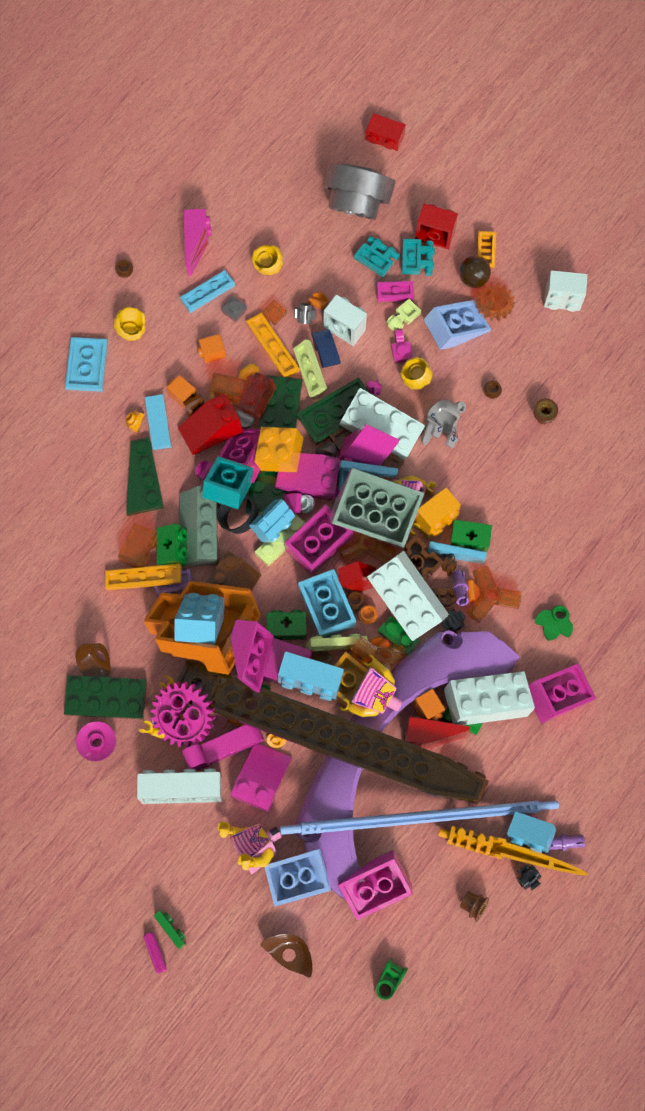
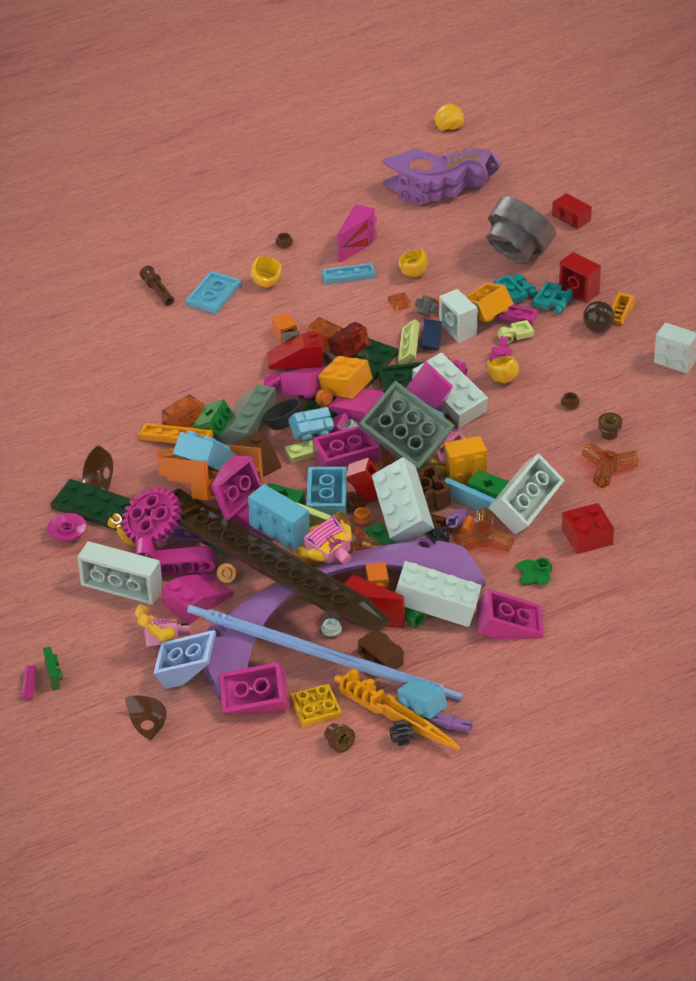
camera: 25 degrees right, 30 degrees down
(20, 372) = (154, 281): none -> reddish brown pin
(134, 420) = (232, 337): light orange plate -> none
(143, 483) = (216, 376): dark green wing -> none
(158, 422) = (252, 343): medium azure tile -> none
(210, 40) = (449, 117): none -> yellow hair
(211, 348) = (328, 307): orange brick -> none
(227, 482) = (285, 381): teal brick -> none
(234, 309) = (365, 290): flat silver plate -> none
(246, 133) = (445, 179): none -> medium lavender animal
(268, 480) = (324, 397): none -> orange plate
(272, 345) = (385, 322): light orange tile -> none
(366, 291) = (490, 300): none -> light orange brick
(390, 979) = (227, 765): green piece -> none
(433, 869) = (315, 705): none -> yellow tile
(443, 417) = (508, 402): light grey piece -> none
(449, 565) = (457, 502): reddish brown plate -> none
(456, 324) = (561, 348): light blue slope -> none
(493, 303) = (606, 342): clear orange gear -> none
(513, 536) = (526, 493): none -> light aqua brick
(572, 454) = (608, 462): none -> clear orange piece
(581, 553) = (587, 528): none -> red brick

